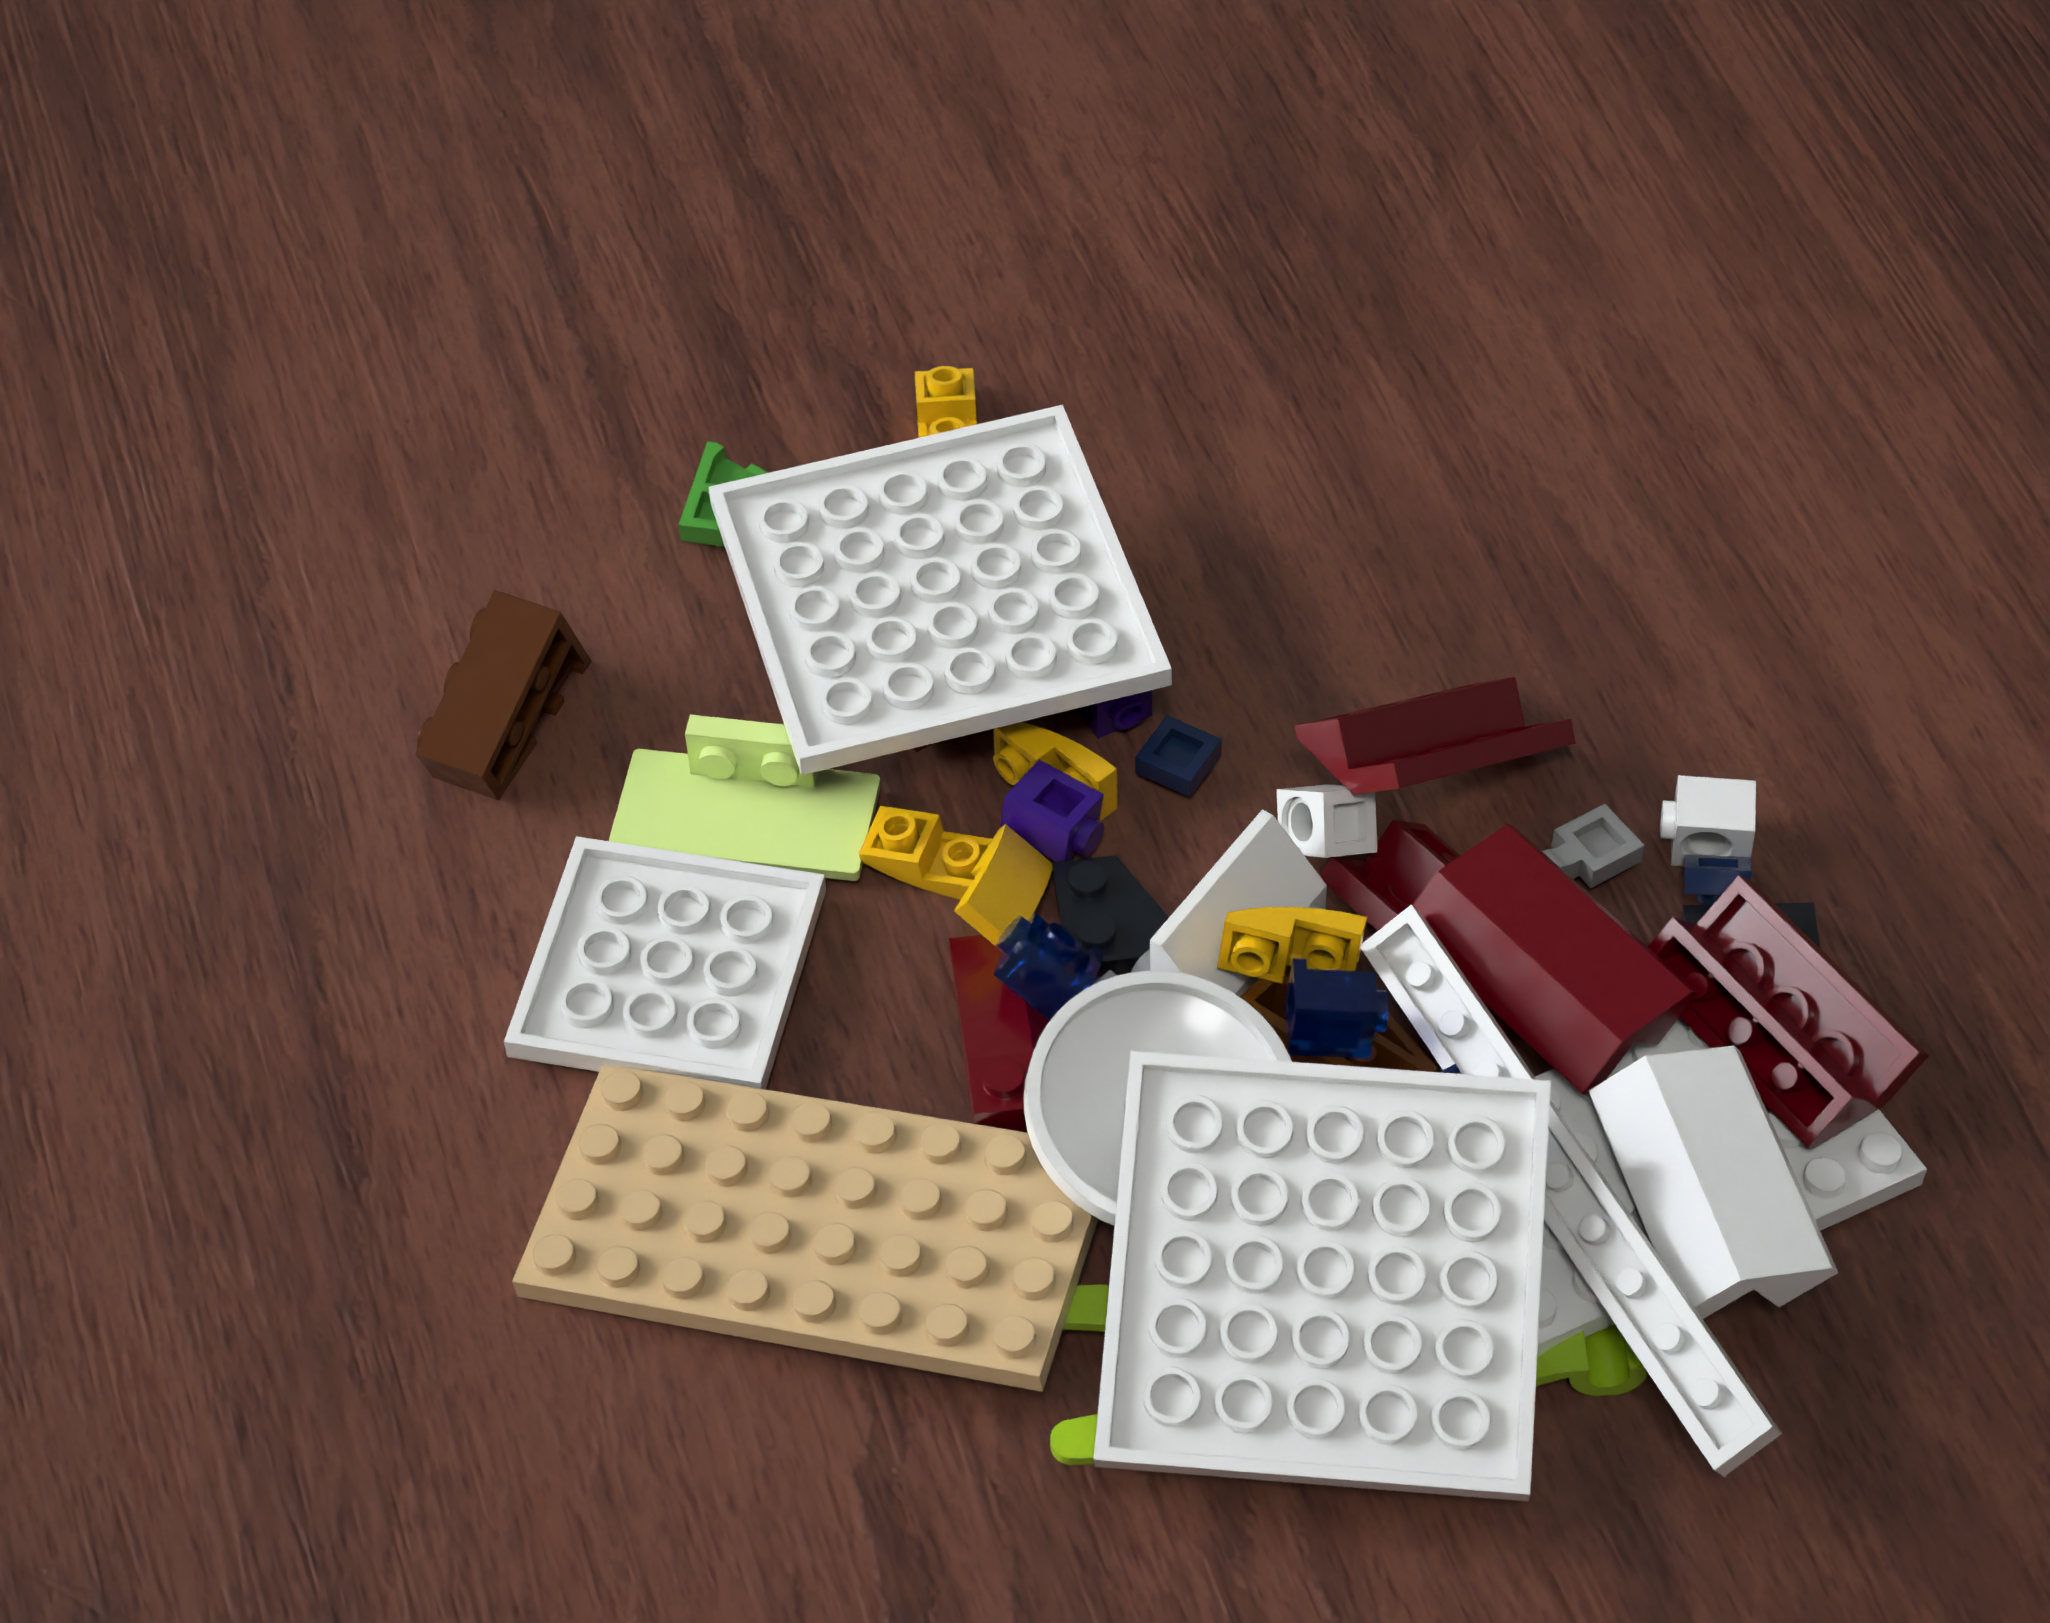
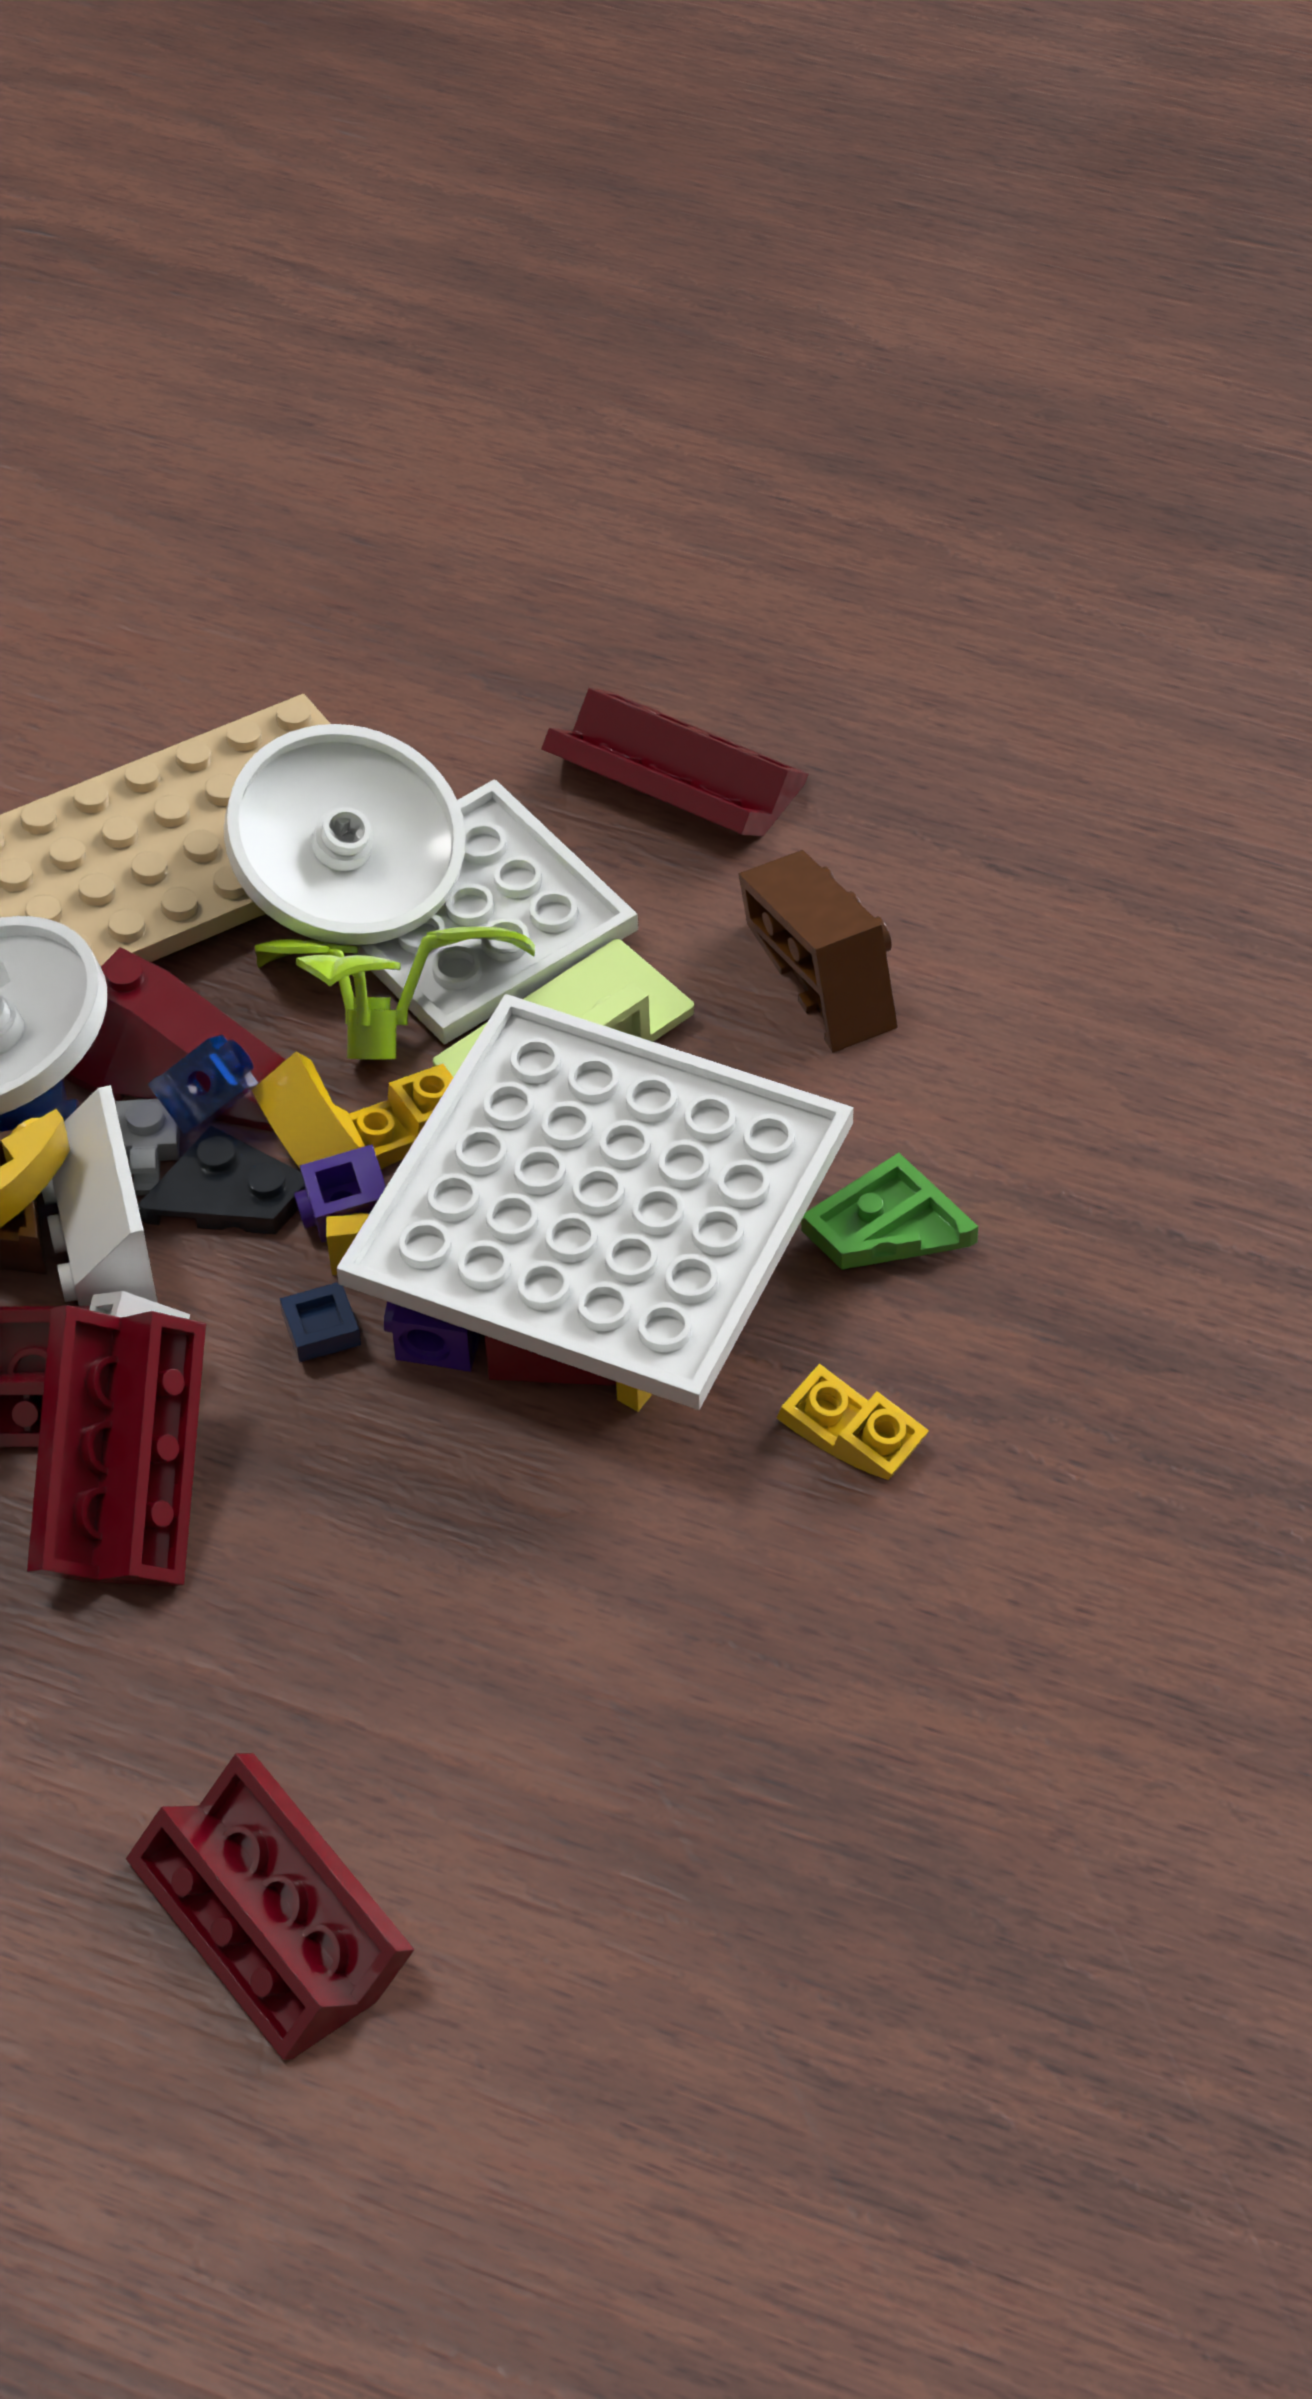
camera: 130 degrees right, 0 degrees up
(361, 948) = (677, 763): none -> dark red slope
(702, 1034) = (344, 834): none -> white dish
(885, 844) = (371, 1019): none -> lime plant
(1644, 454) = (270, 1907): none -> dark red slope

